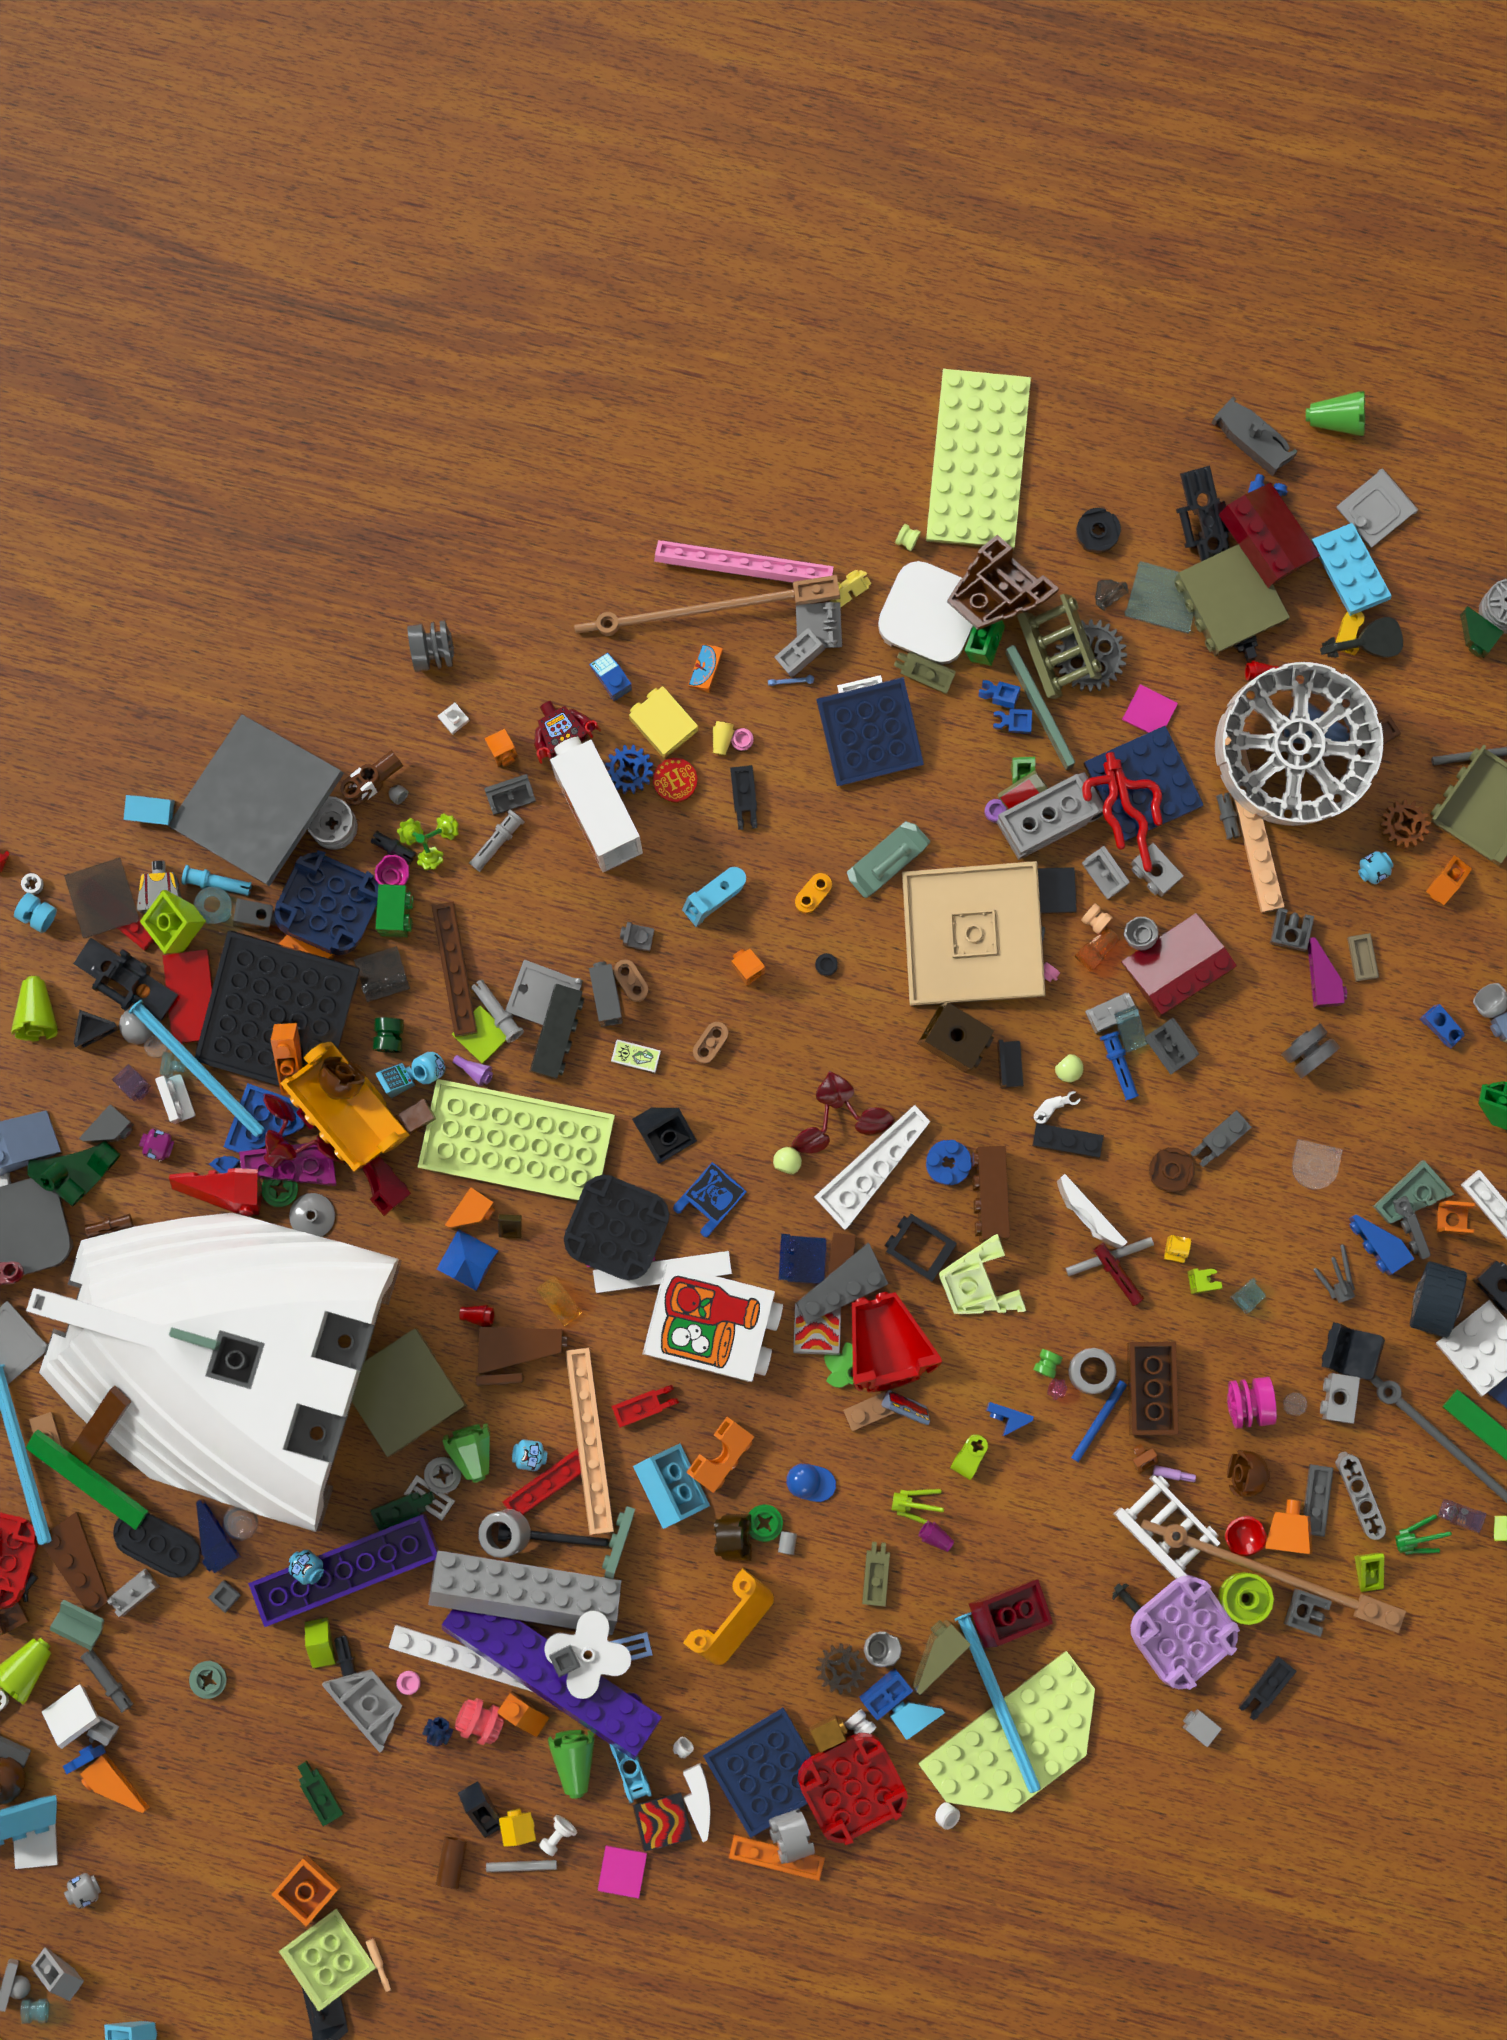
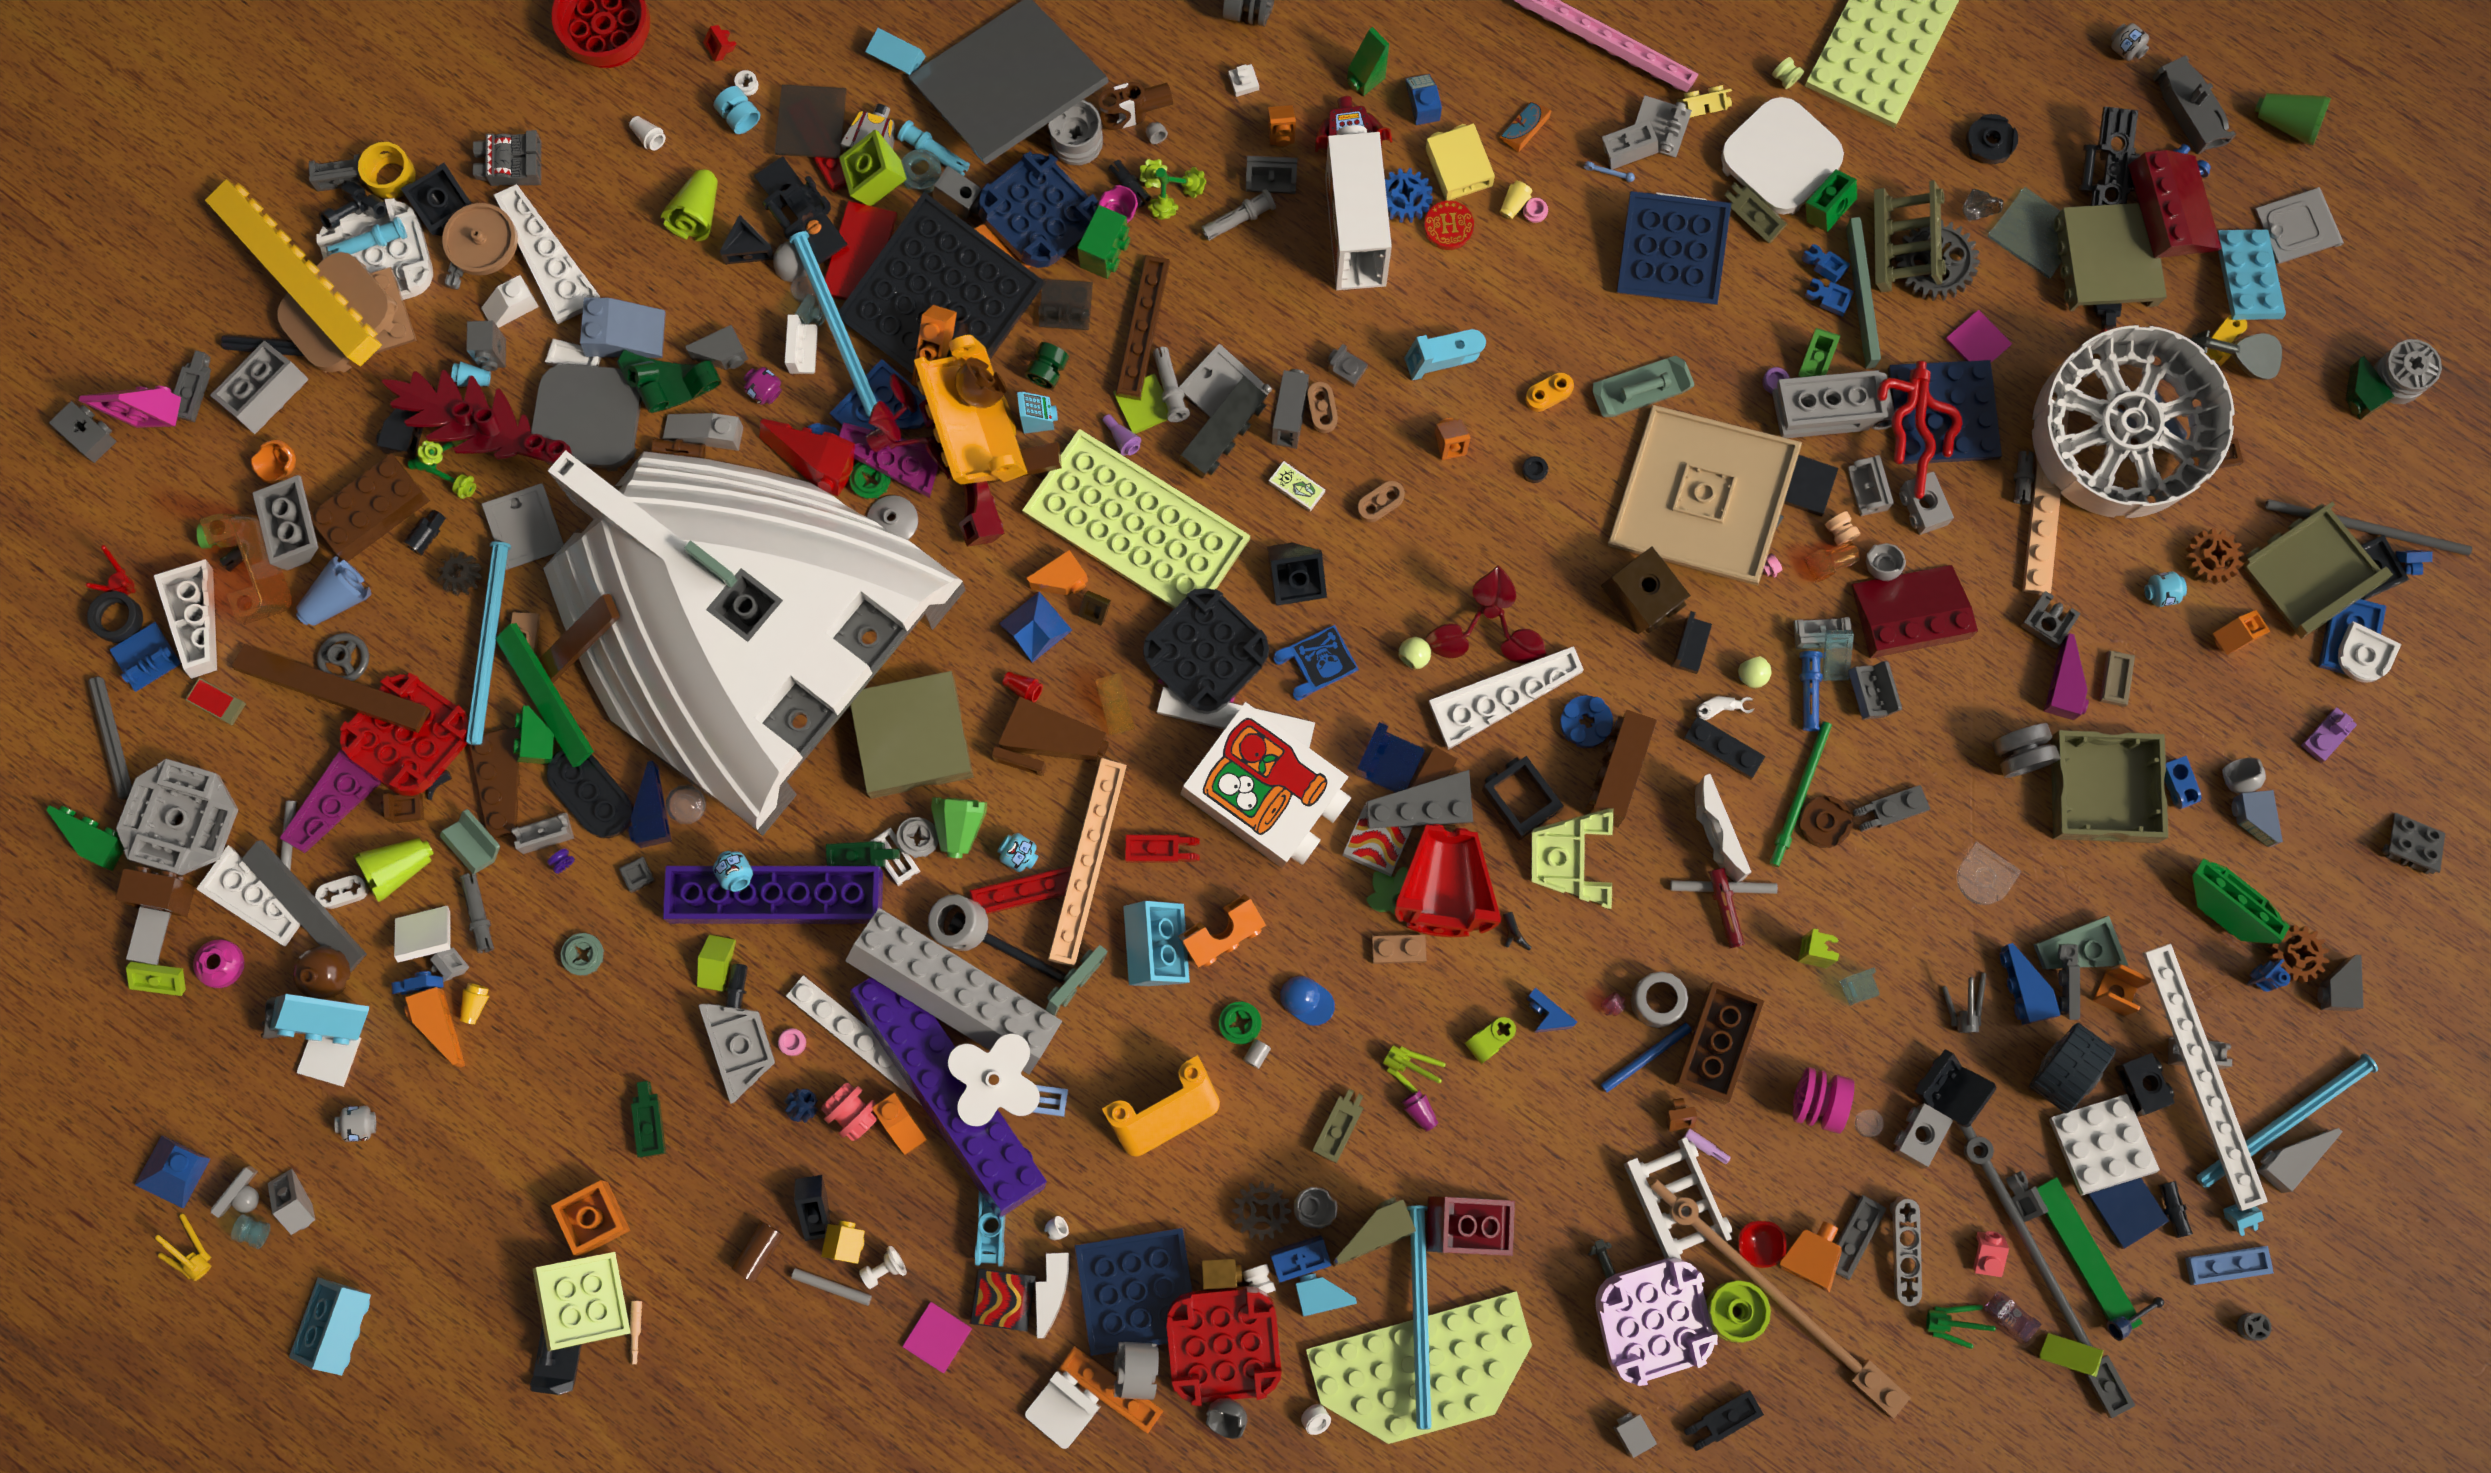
camera: 20 degrees right, 5 degrees down
(93, 1519) = (534, 740): none -> green slope
(123, 1201) = (706, 429): none -> light grey slope
(132, 1083) = (763, 314): clear purple brick -> none
(135, 1754) = (473, 1002): none -> yellow cone
(157, 1610) = (560, 861): none -> dark purple bush
(428, 1067) = (1074, 413): medium azure head -> none
(554, 669) = (1369, 63): none -> green slope
(564, 1660) = (966, 1075): dark grey tile -> none
(573, 1760) = (932, 1194): bright green cone -> none
(732, 1537) = (1200, 1025): dark brown cylinder -> none
(744, 794) = (1516, 264): black hinge -> none
(745, 1889) = (1062, 1409): none -> white bracket
(804, 592) = (1658, 84): medium nougat bar -> none
(877, 1843) = (1227, 1418): none -> dark grey hair
(906, 1407) = (1441, 959): slope -> none
(955, 1360) = (1513, 931): none -> black bar
(998, 587) = (1865, 150): reddish brown wedge -> none
(1022, 790) = (1815, 365): tile -> none
(1048, 1363) = (1613, 973): bright green wheel -> none
(1143, 1198) = (1783, 839): none -> green bar
(1177, 1248) = (1801, 905): yellow leg -> none
(1182, 400) = (2130, 41): none -> light grey head
(1248, 1473) = (1790, 1176): reddish brown cylinder -> none
(1301, 1622) = (1805, 1343): dark grey brick -> none
(1370, 1571) = (1887, 1337): lime slope -> none
(1387, 1053) = (2109, 787): none -> olive tile
(1427, 1471) = (1991, 1254): none -> coral bracket
(1440, 1417) = (2026, 1200): none -> dark grey plate

